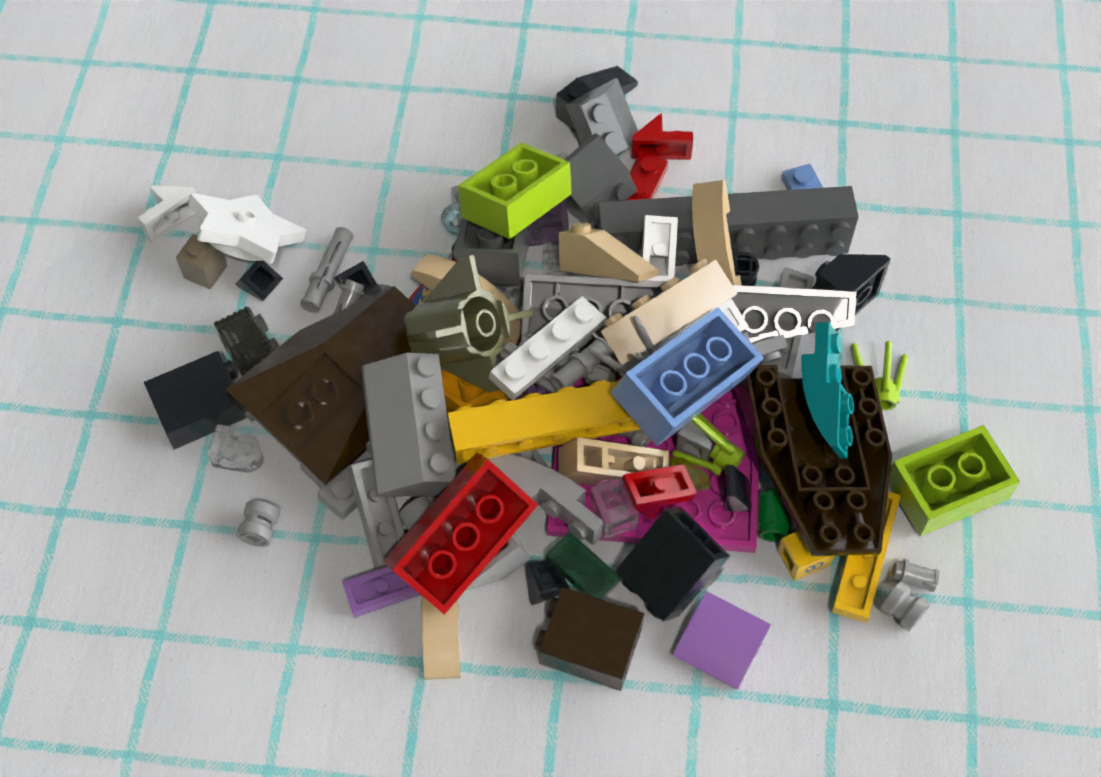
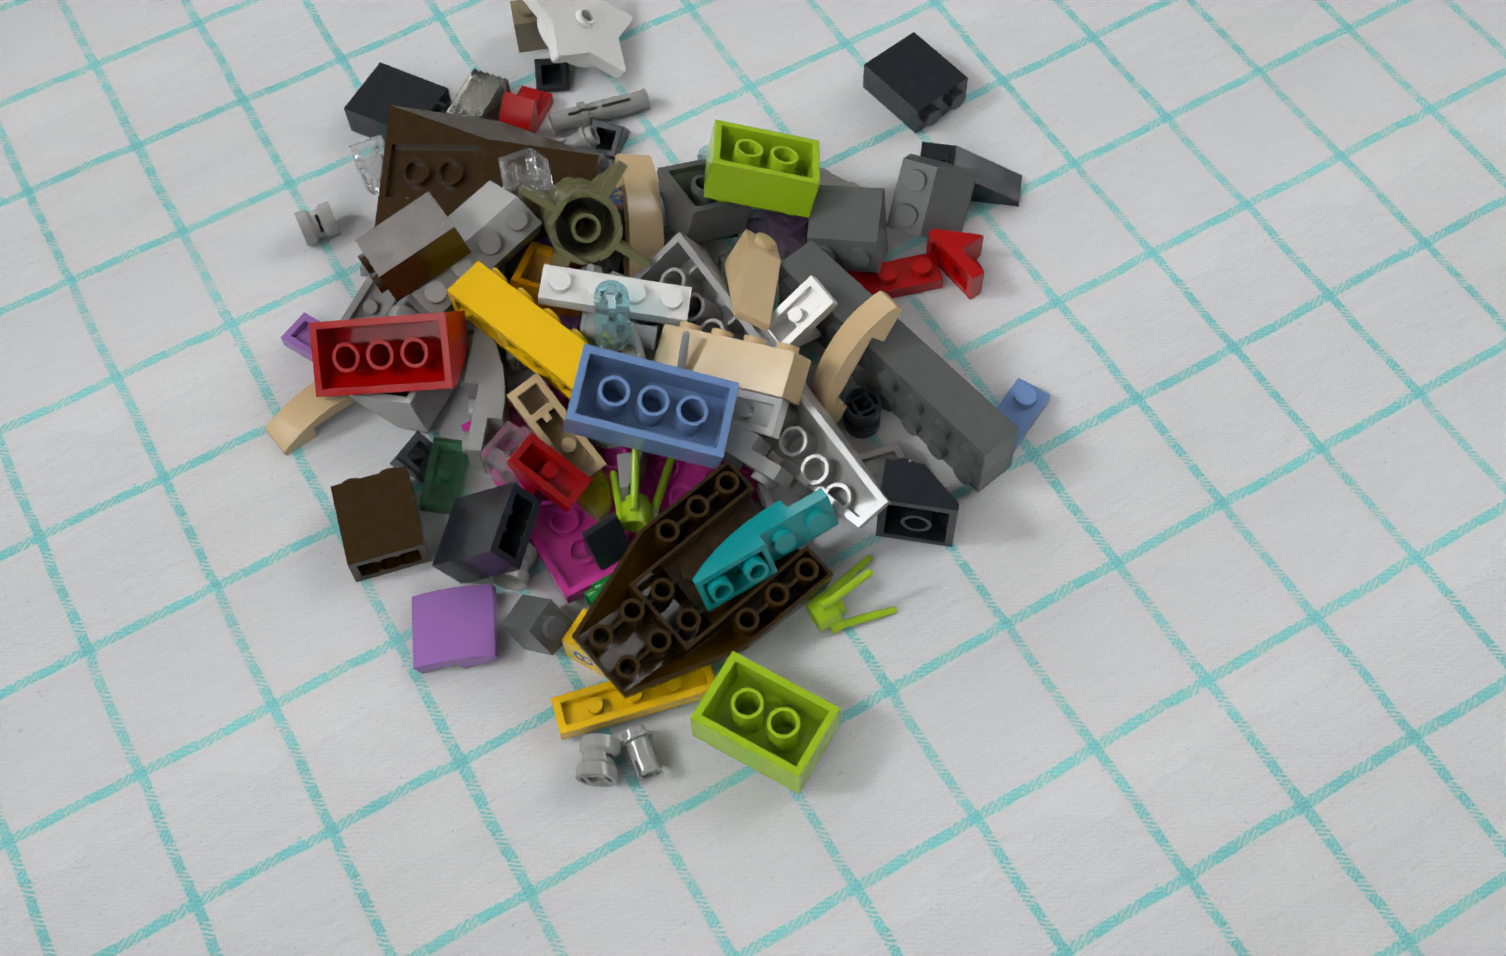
camera: 55 degrees right, 0 degrees up
(280, 316) = (526, 108): none -> red slope
(385, 334) = (527, 169): none -> clear leg
(389, 451) = (411, 247): none -> brick
(489, 69) = (915, 82): none -> black brick
(577, 355) = (619, 315): none -> clear light blue beam
(769, 578) = (537, 624): none -> dark grey brick

